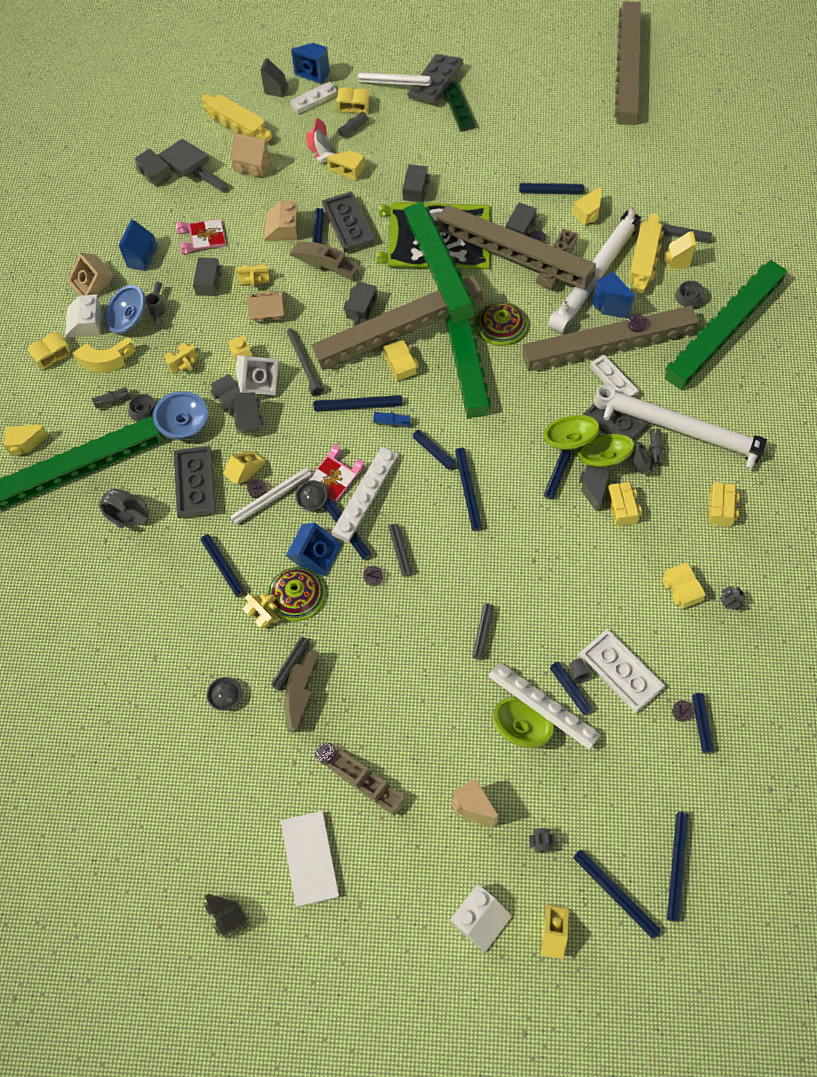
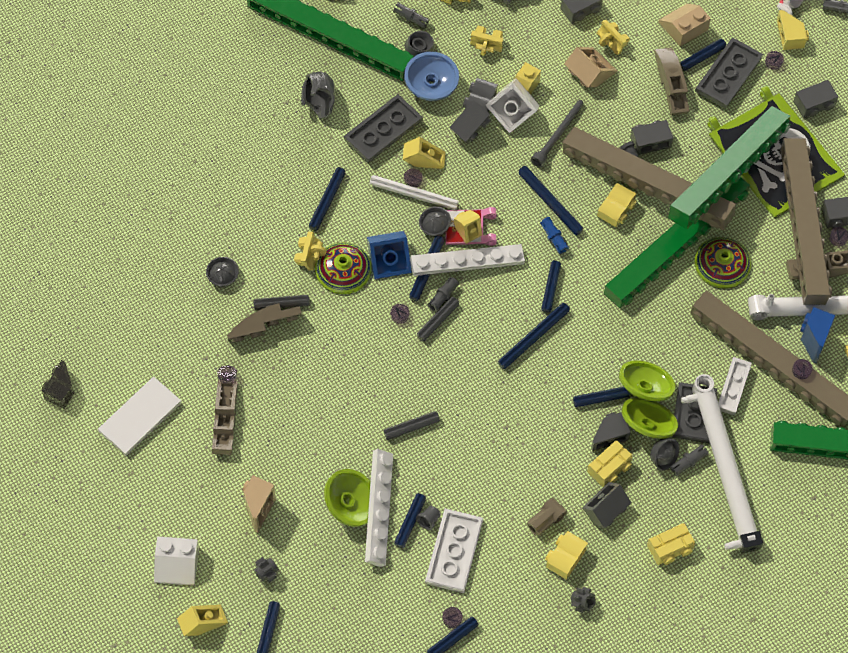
camera: 50 degrees right, 0 degrees up
(337, 471) = (468, 225): none -> light yellow slope
(360, 189) = (774, 60): none -> tile
(381, 531) = (443, 294): none -> dark grey pin
(638, 575) = (550, 513): none -> dark tan piece
(660, 527) = (607, 505): none -> dark grey brick

